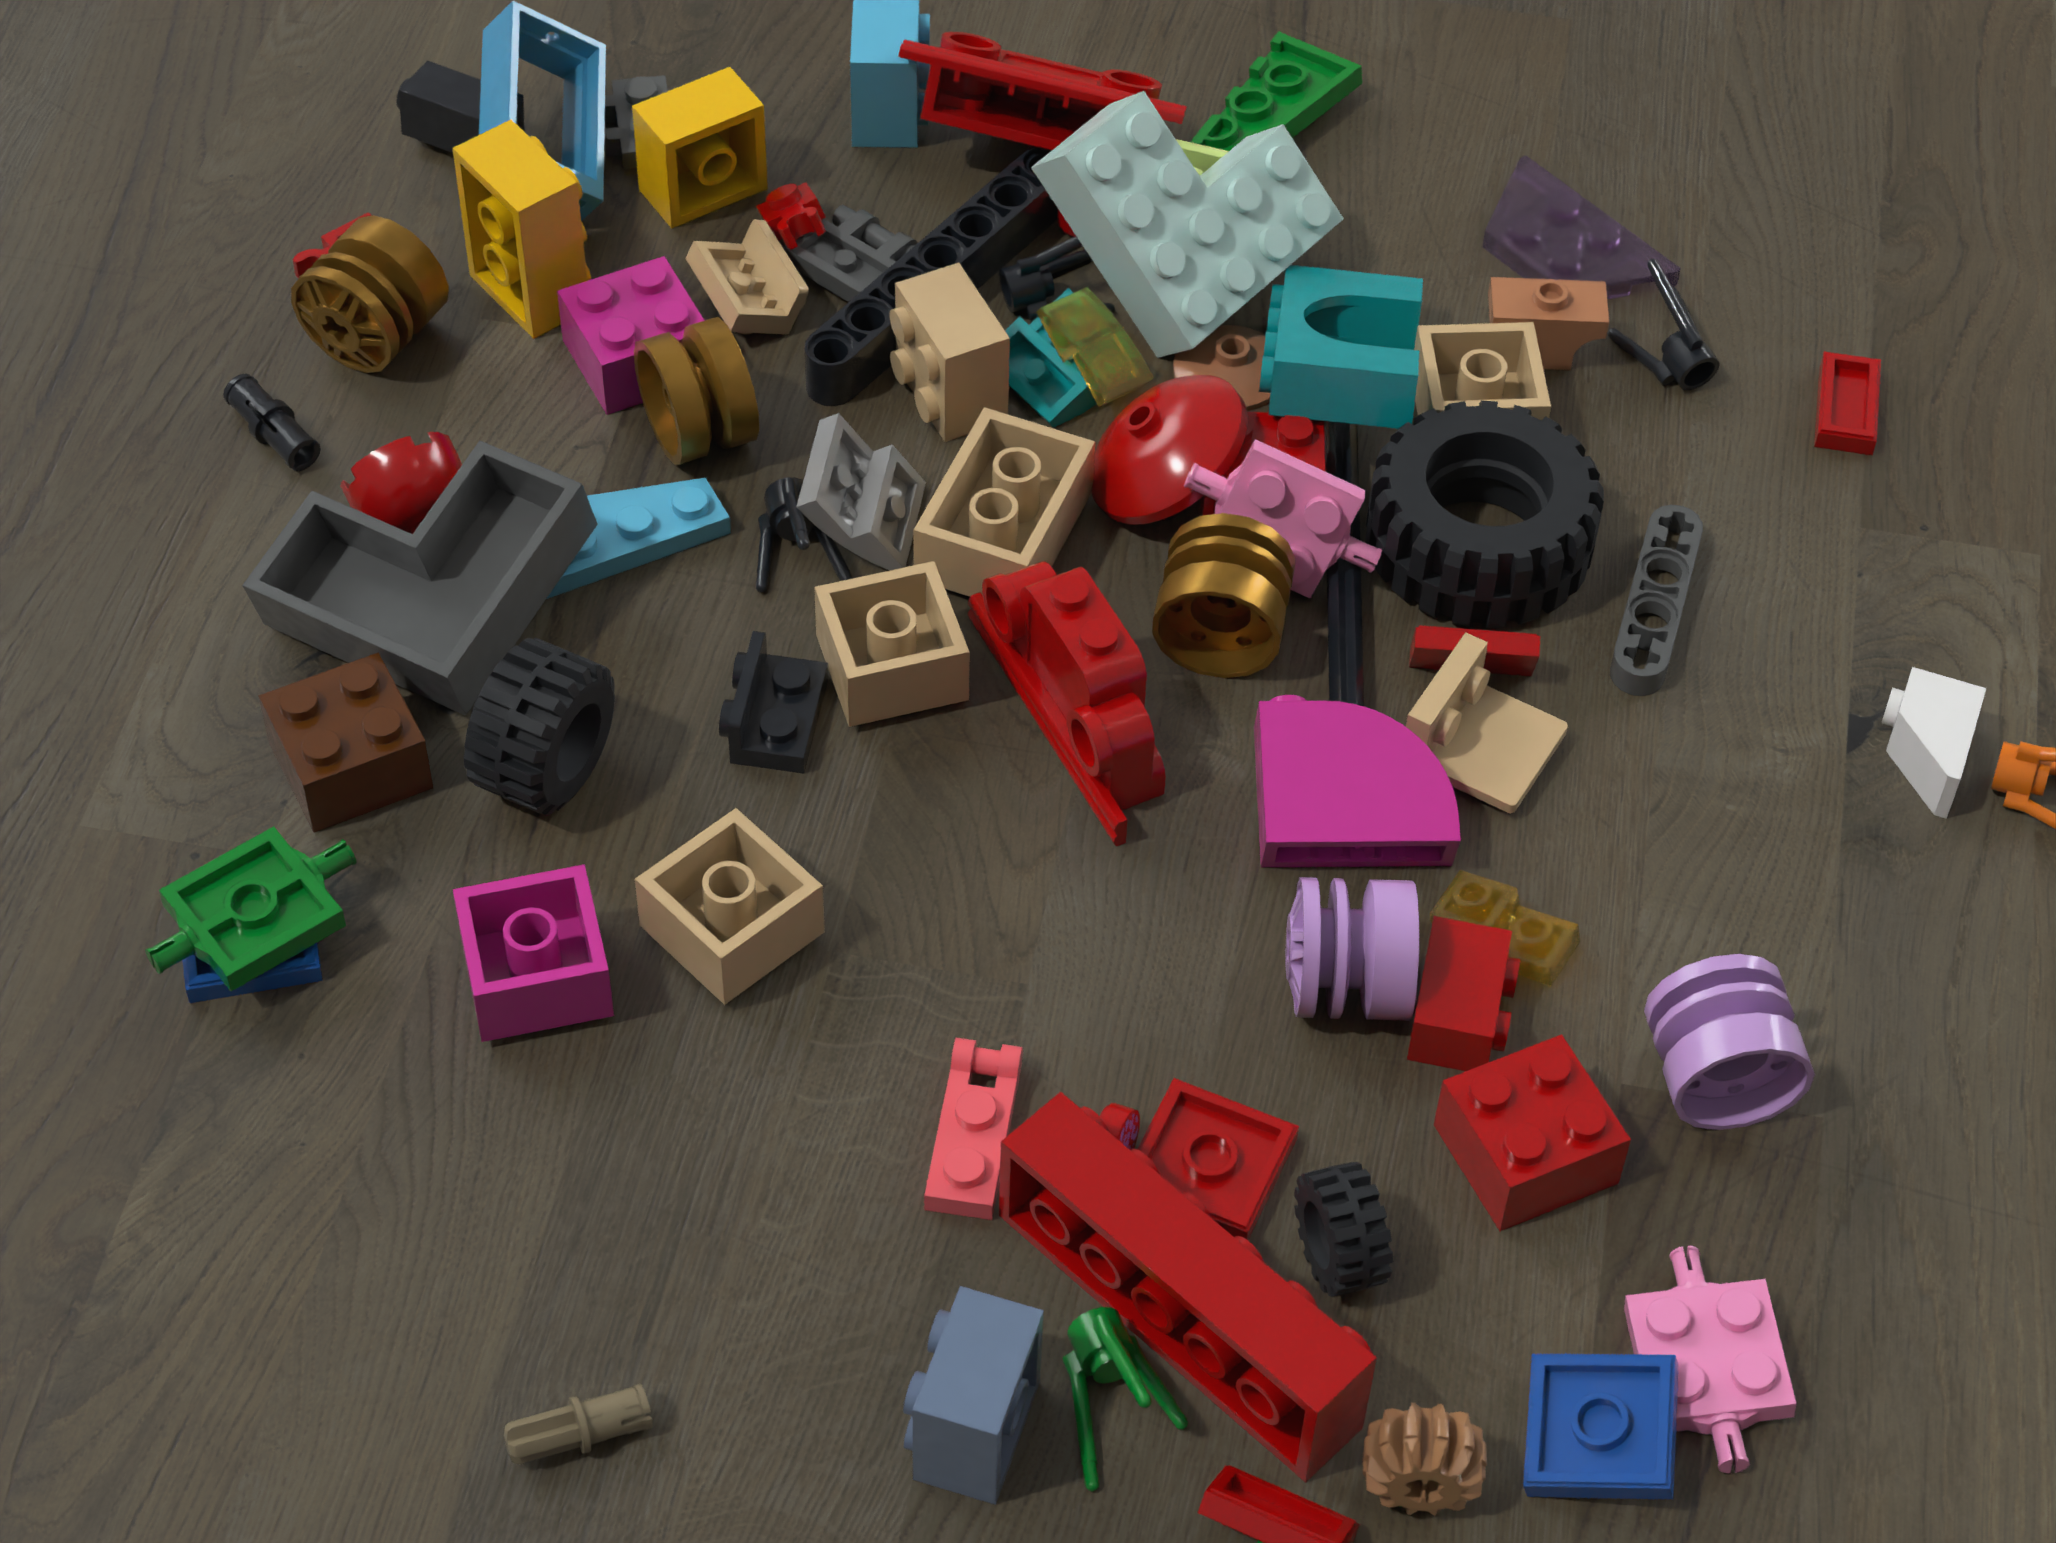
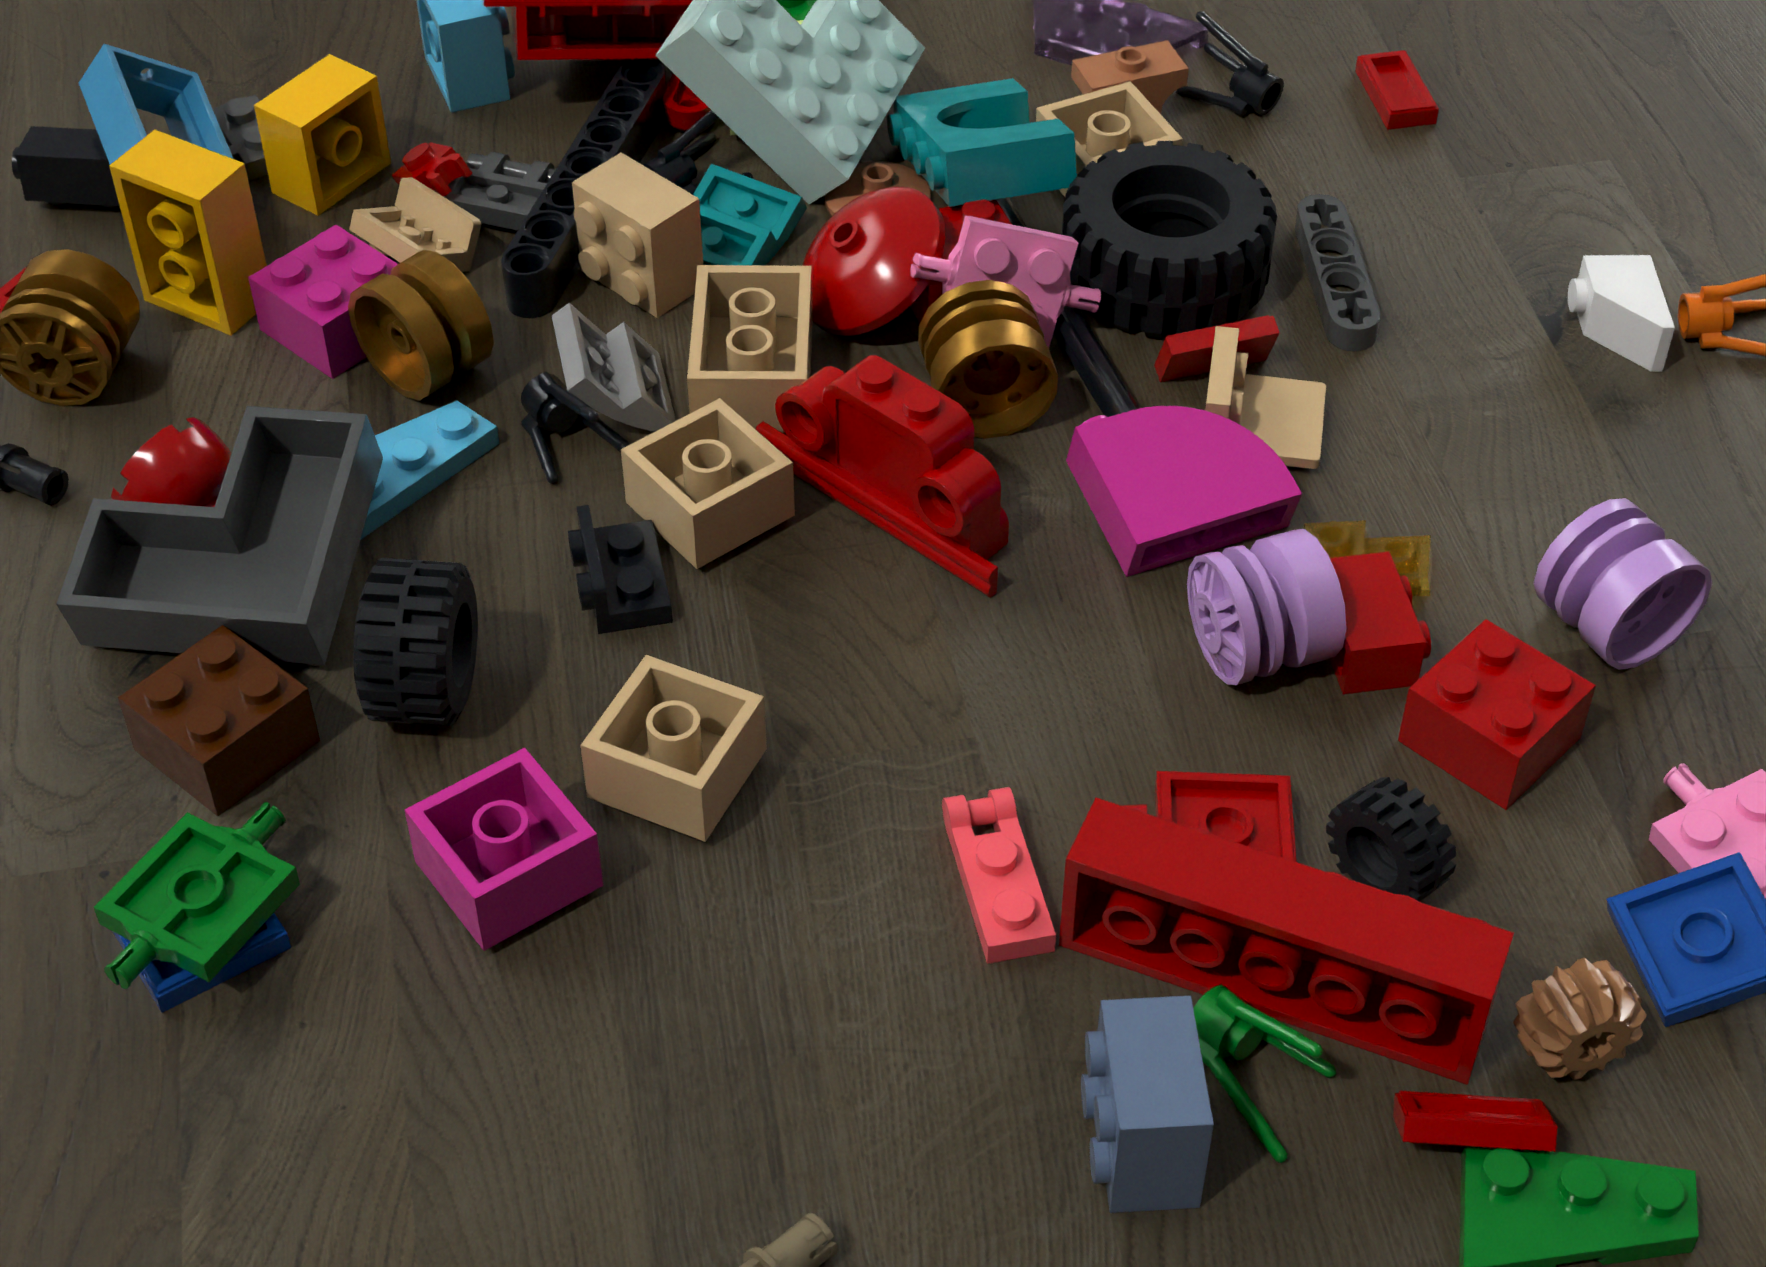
camera: 20 degrees left, 5 degrees down
(1097, 342) = (772, 199): clear yellow slope -> none

